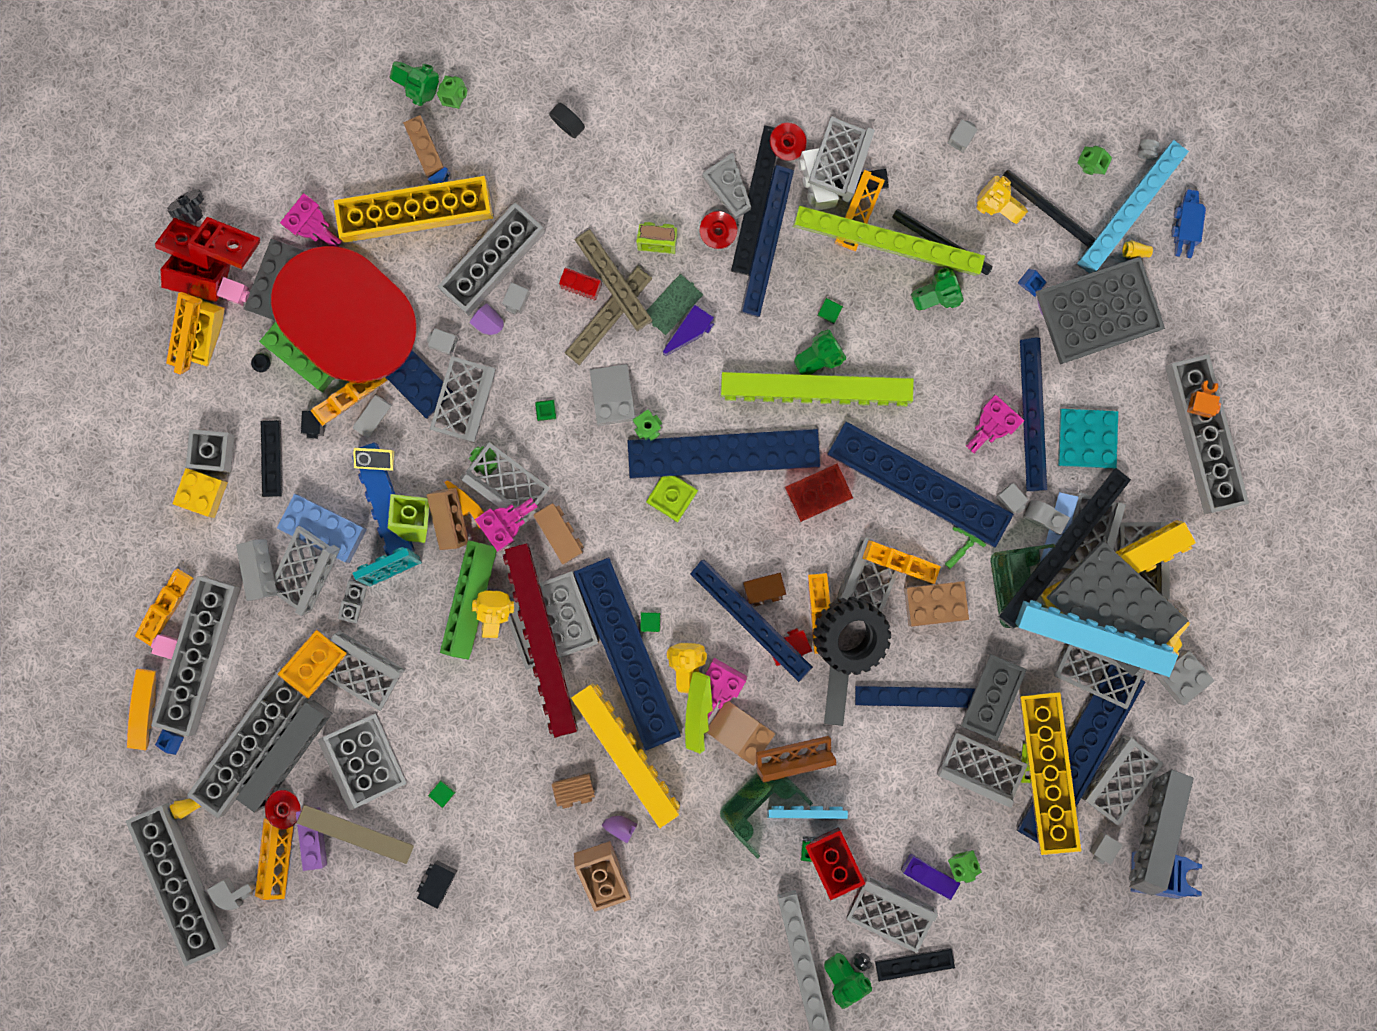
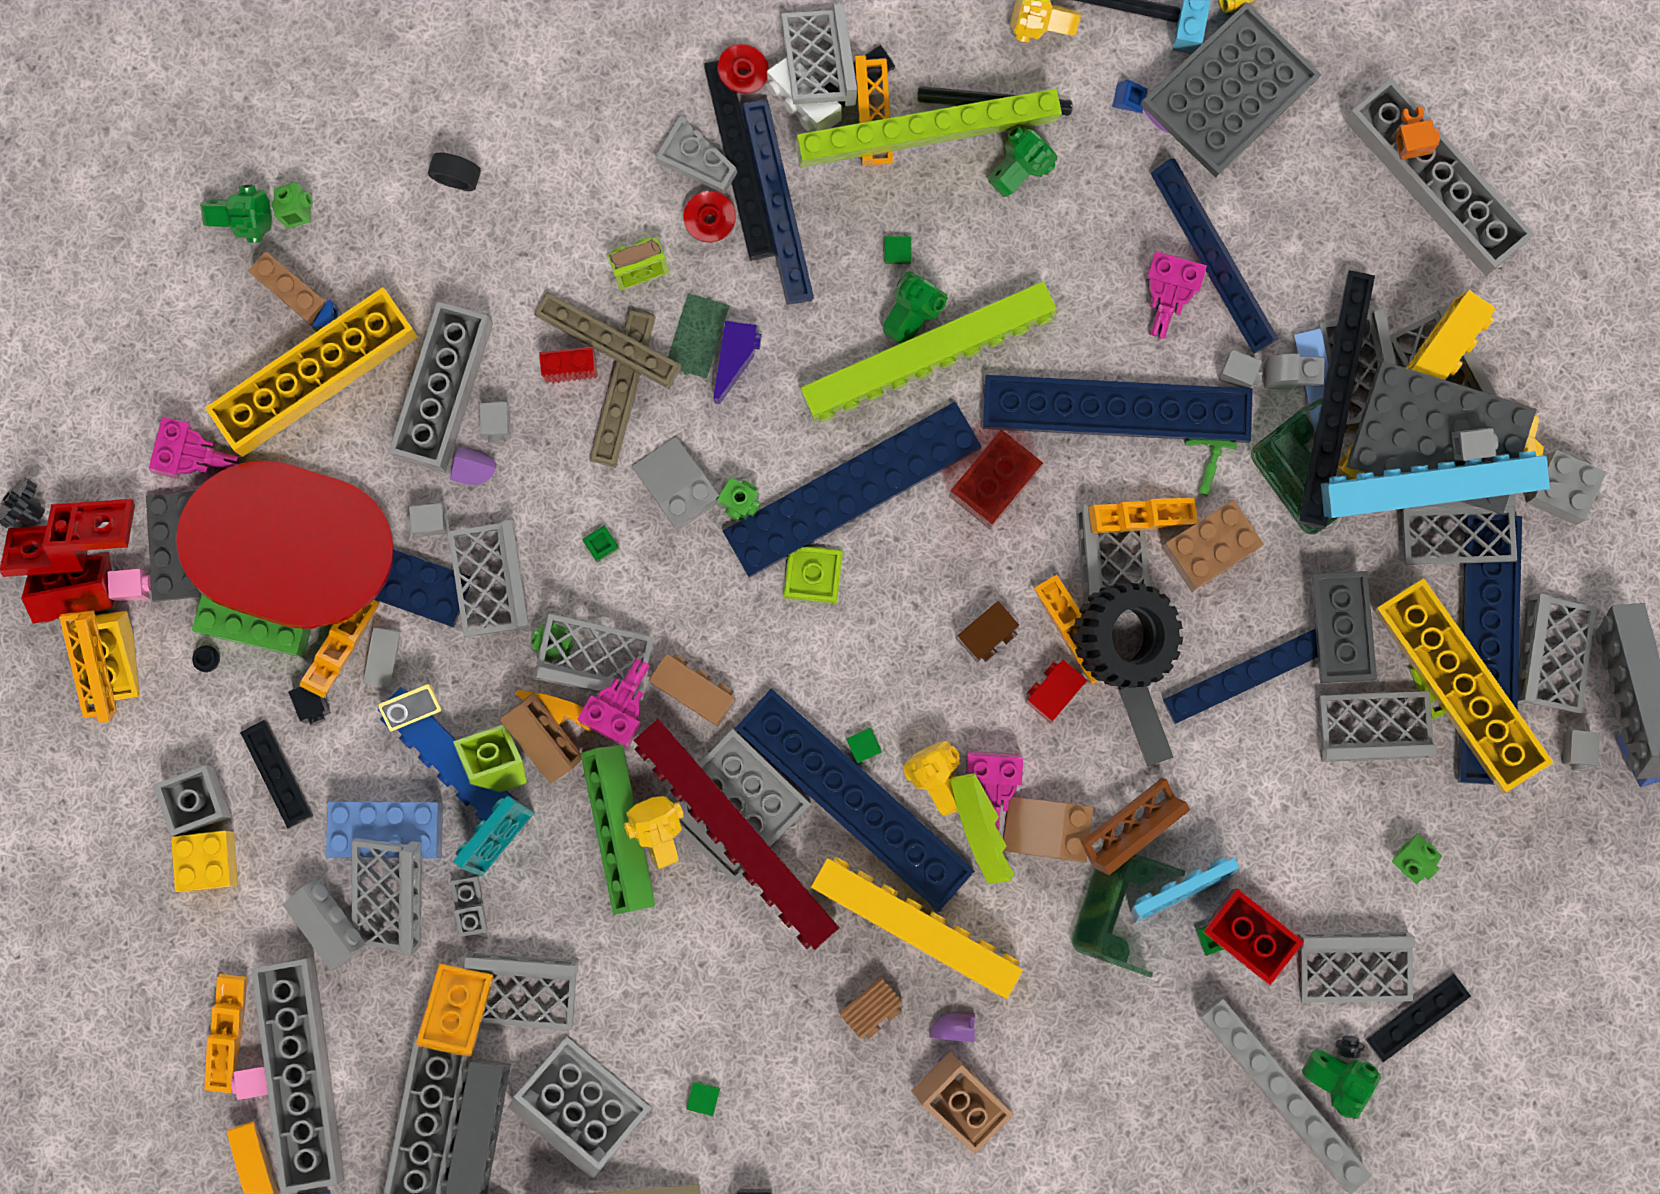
camera: 25 degrees left, 5 degrees down
(751, 620) = (992, 678): dark blue plate -> none
(930, 876) = (1380, 894): dark purple slope -> none
(1088, 438) = (1296, 253): teal plate -> none
(1135, 624) = (1474, 444): none -> light grey brick

